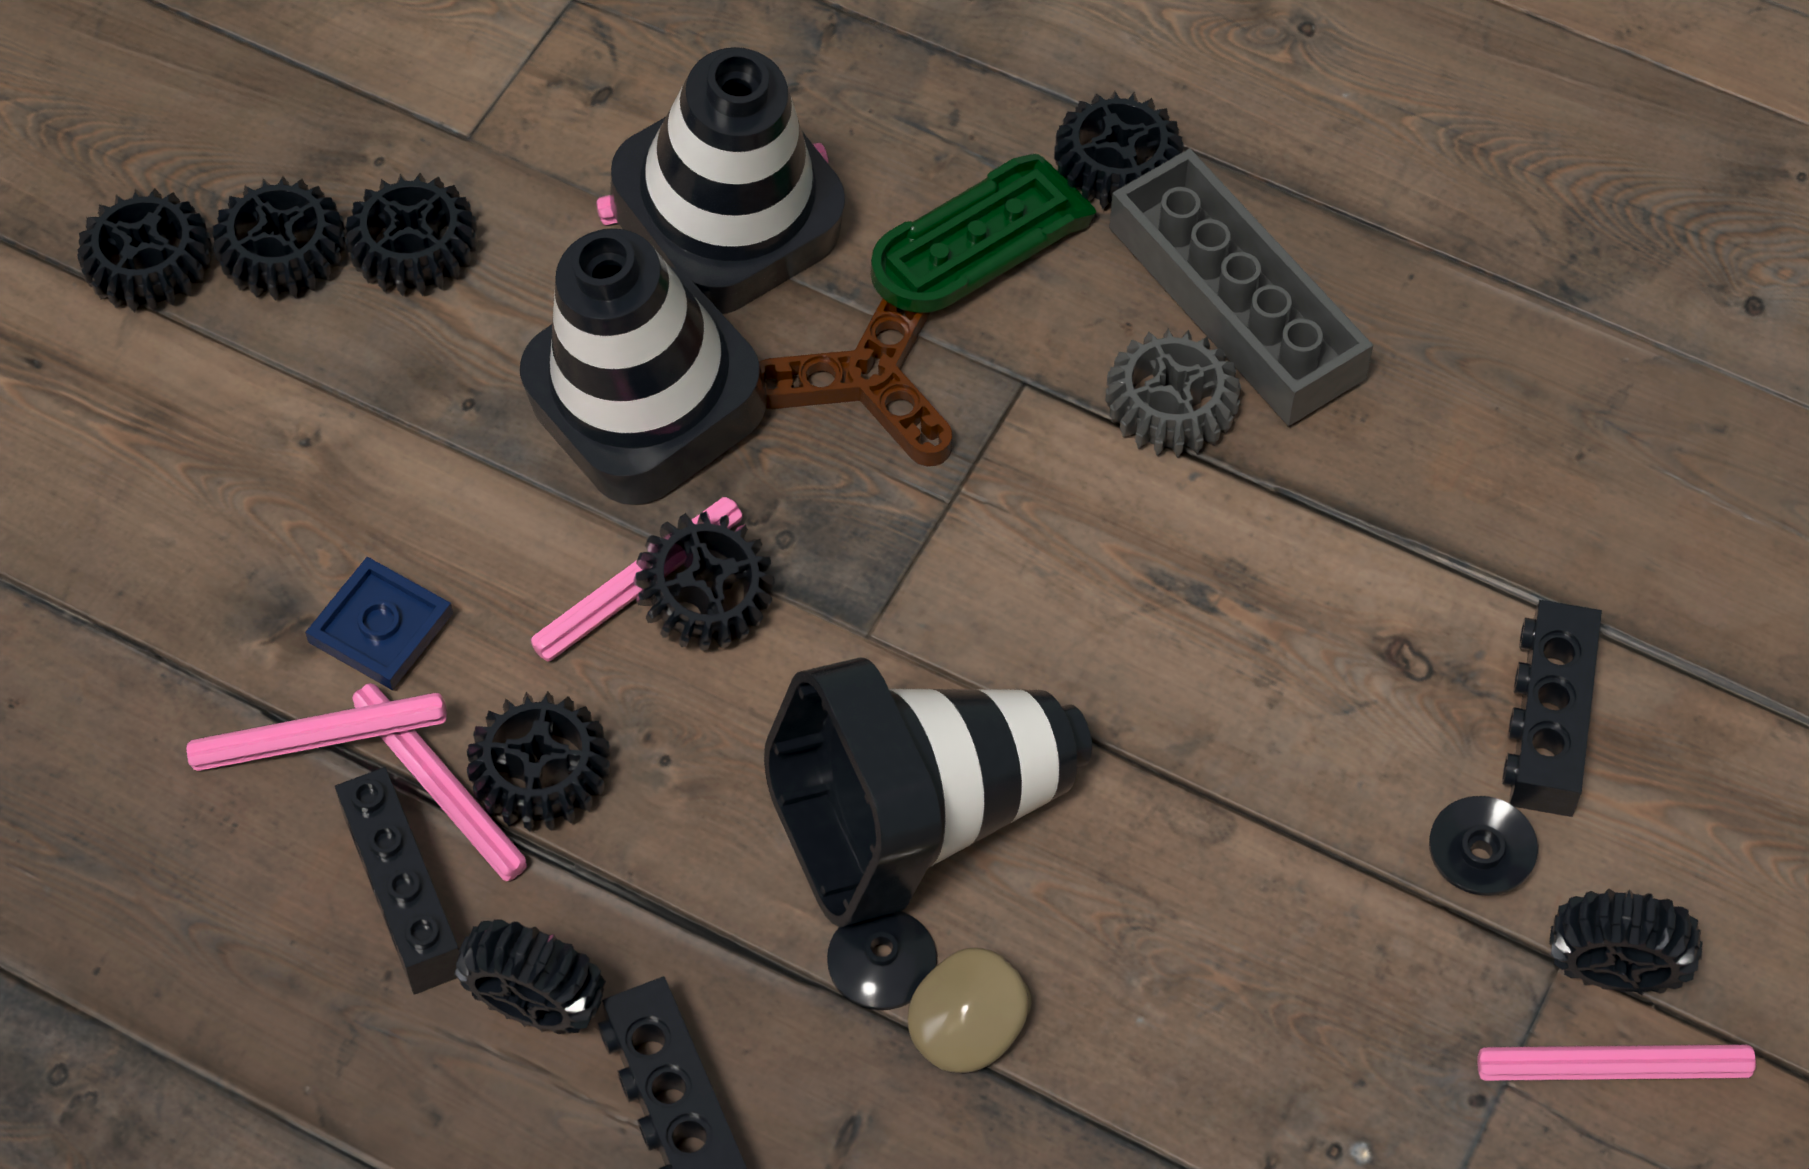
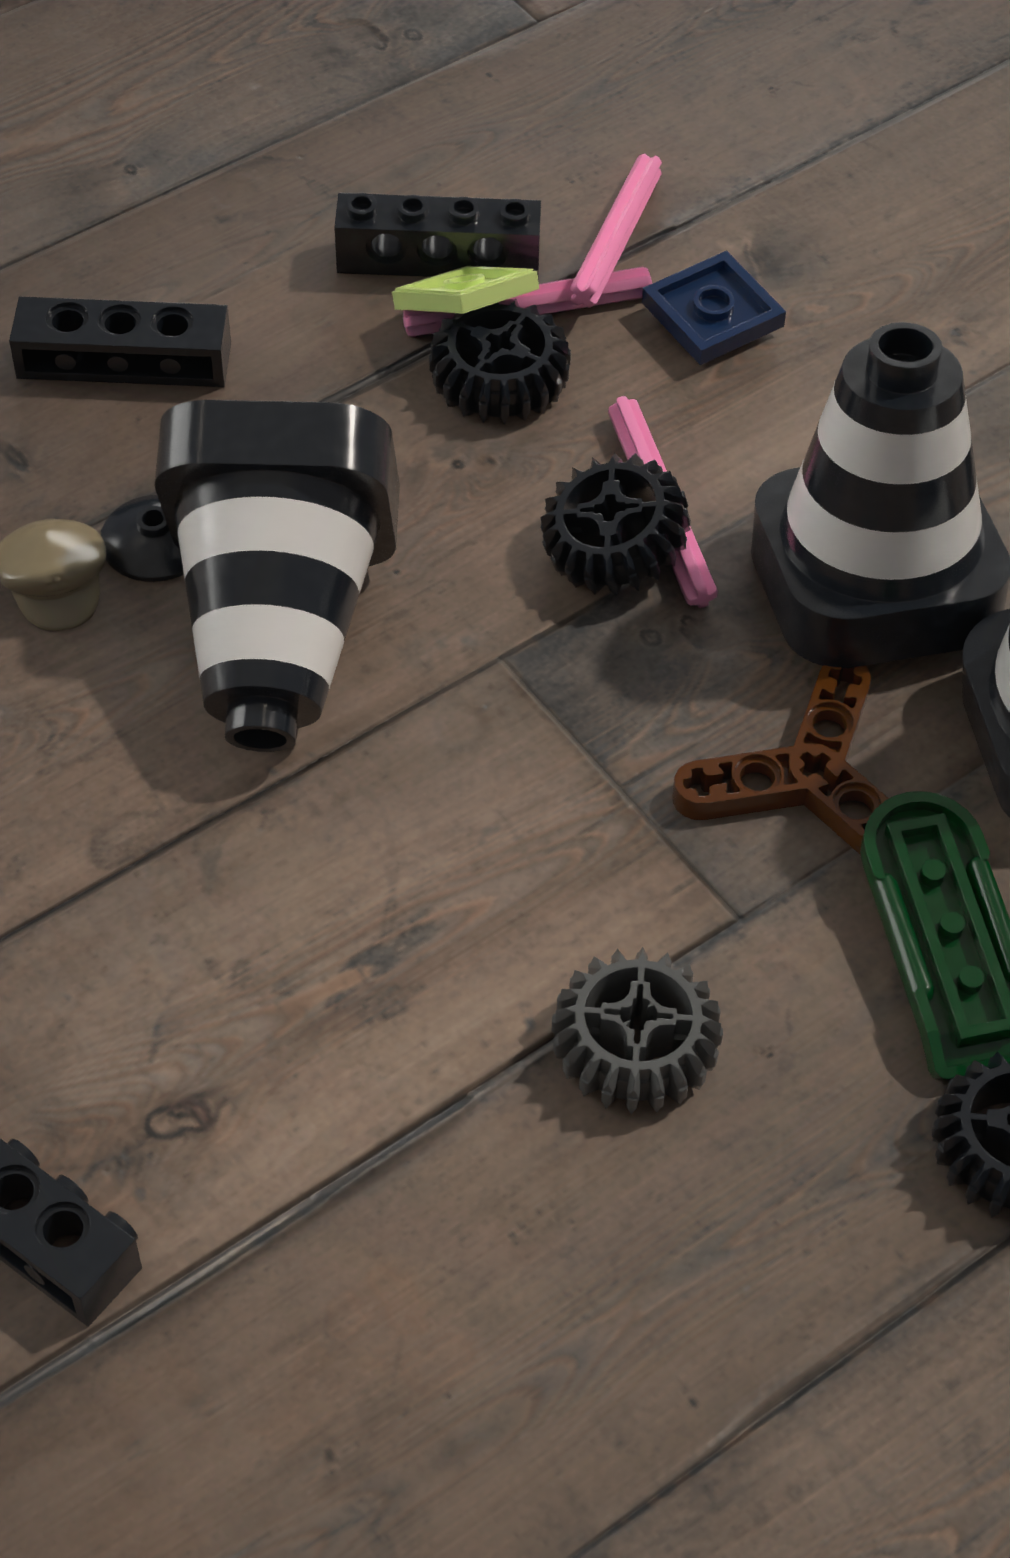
camera: 115 degrees right, 5 degrees down
(478, 810) = (465, 289): none -> yellowish green tile
(530, 976) = (271, 253): black gear -> none
(1240, 286) = (745, 1153): dark grey brick -> none

